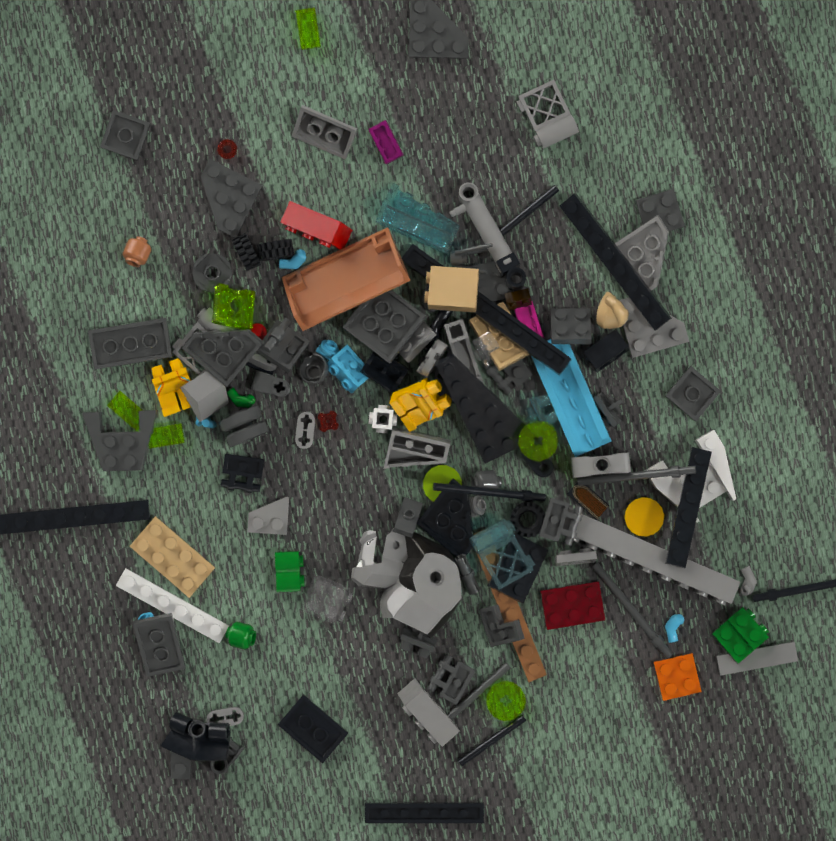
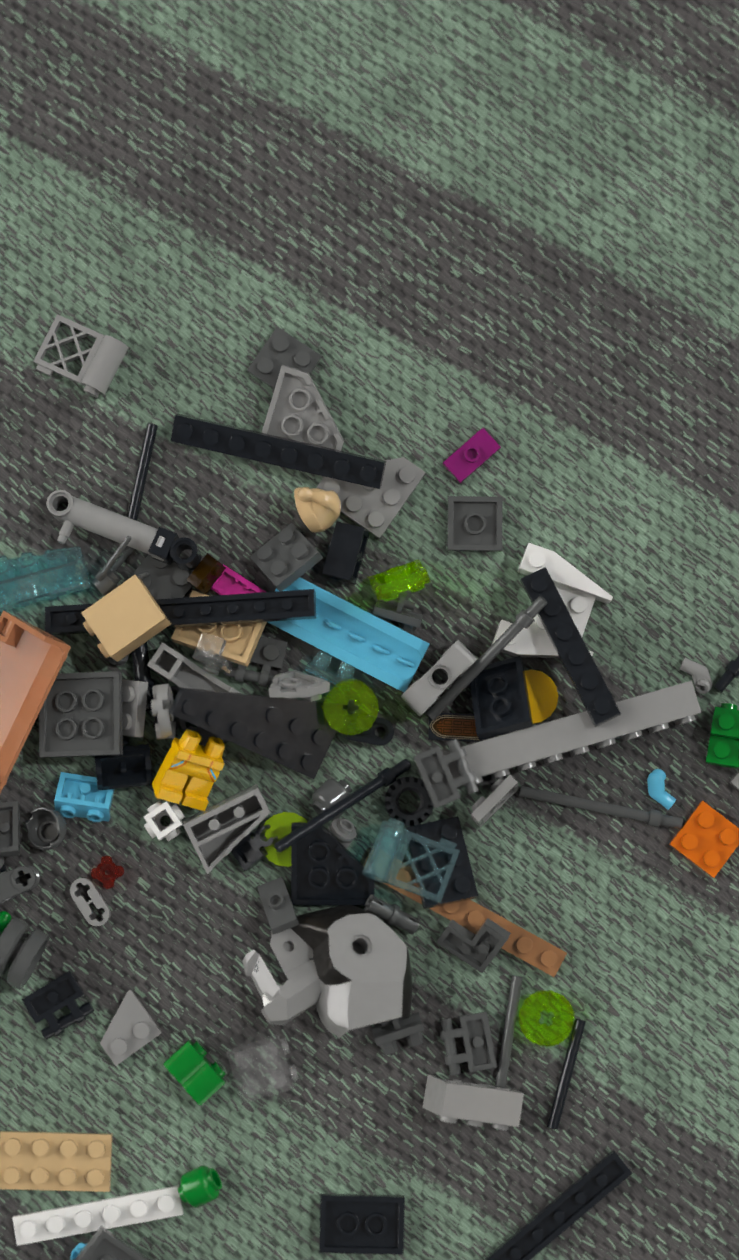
camera: 45 degrees left, 5 degrees down
(327, 349) = (43, 794): medium azure plate -> none
(419, 473) = (251, 848): none -> black plate
(519, 404) = (298, 685): none -> light grey plate
(572, 605) = (533, 854): dark red plate -> none
(624, 391) = (399, 579): none -> clear neon green brick
(625, 505) = (501, 699): none -> black plate
(723, 353) = (471, 455): none -> magenta plate

